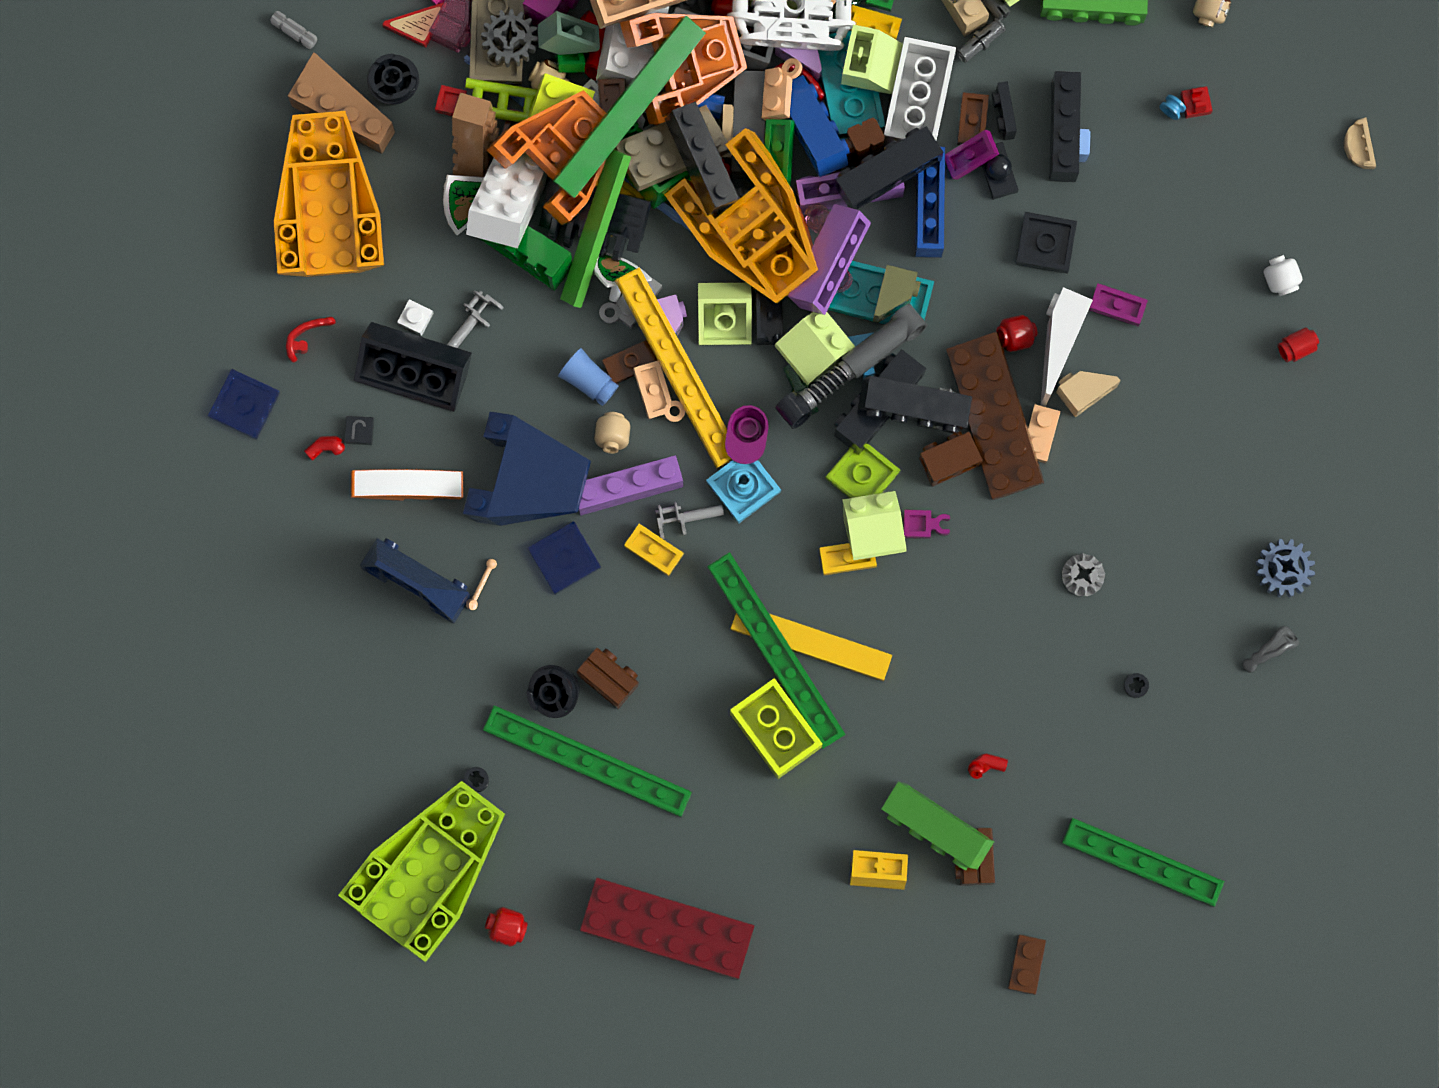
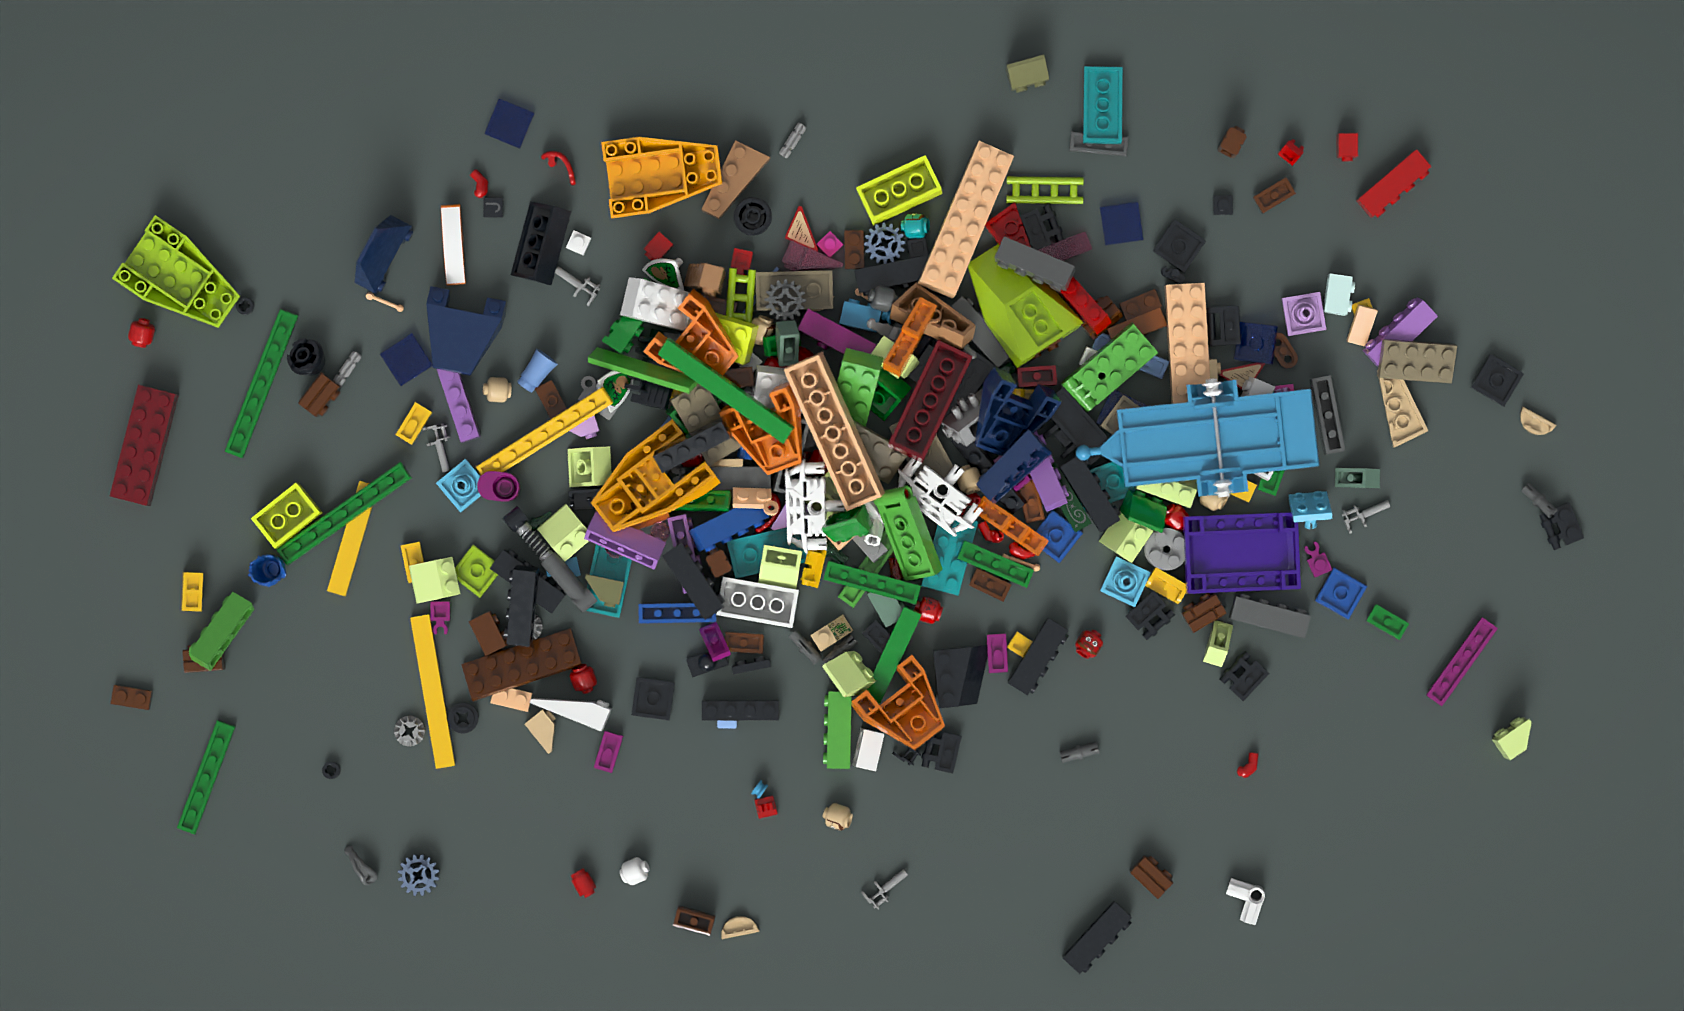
camera: 85 degrees right, 10 degrees up
(427, 209) = (658, 247): none -> red brick
(571, 639) = (347, 368): none -> light grey axle
(655, 392) = (528, 419): light nougat hinge -> none
(852, 757) = (267, 570): none -> blue hair
(984, 763) = (270, 663): red arm -> none
(1028, 540) = (432, 691): none -> yellow tile
(1066, 488) = (453, 718): none -> black gear
(1352, 197) = (694, 920): none -> reddish brown brick

